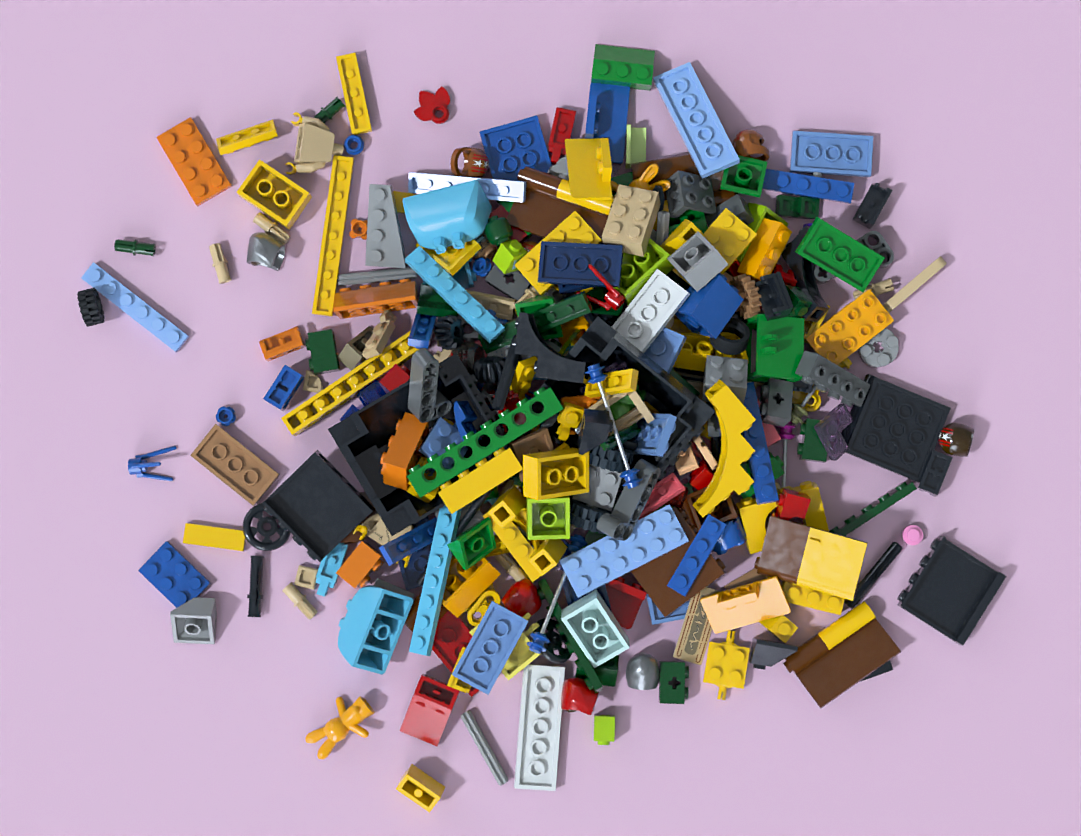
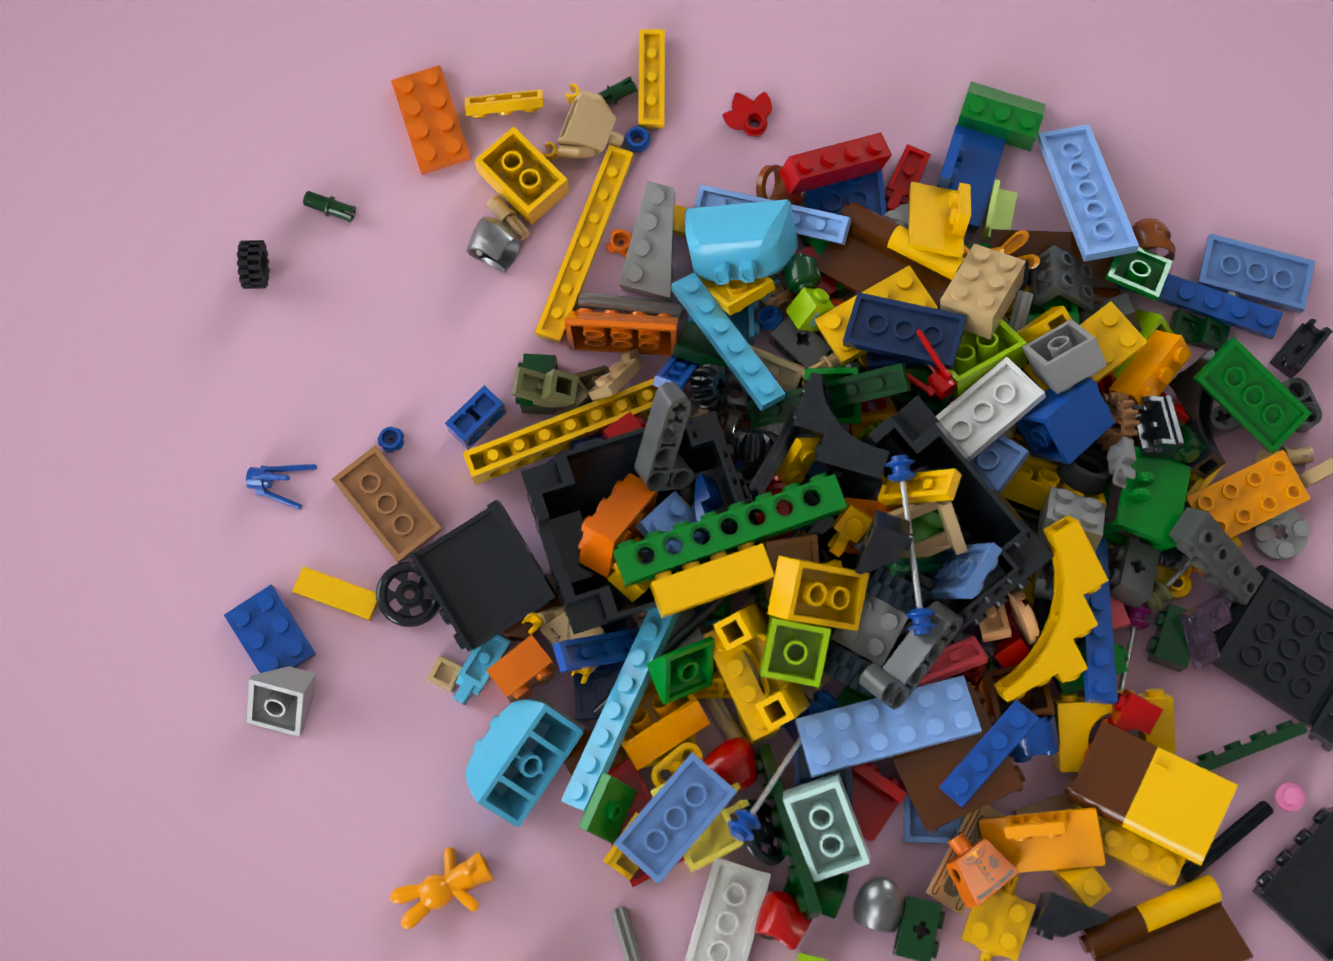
camera: 10 degrees right, 10 degrees down
(135, 307) = (310, 280): light blue plate -> none
(219, 263) = (432, 248): tan axle -> none
(255, 586) = (374, 671): black pin -> none
(282, 344) = (487, 364): orange hinge -> none
(300, 601) = (429, 703): tan axle -> none
(312, 383) = (513, 420): tan tile -> none
(330, 358) = (547, 390): none -> olive brick
(429, 710) = (570, 893): slope -> none
(442, 649) = (607, 808): none -> green plate
(505, 139) = (835, 163): none -> red brick
(705, 633) = (978, 869): none -> orange torso
(752, 326) = (1120, 459): none -> light grey plate

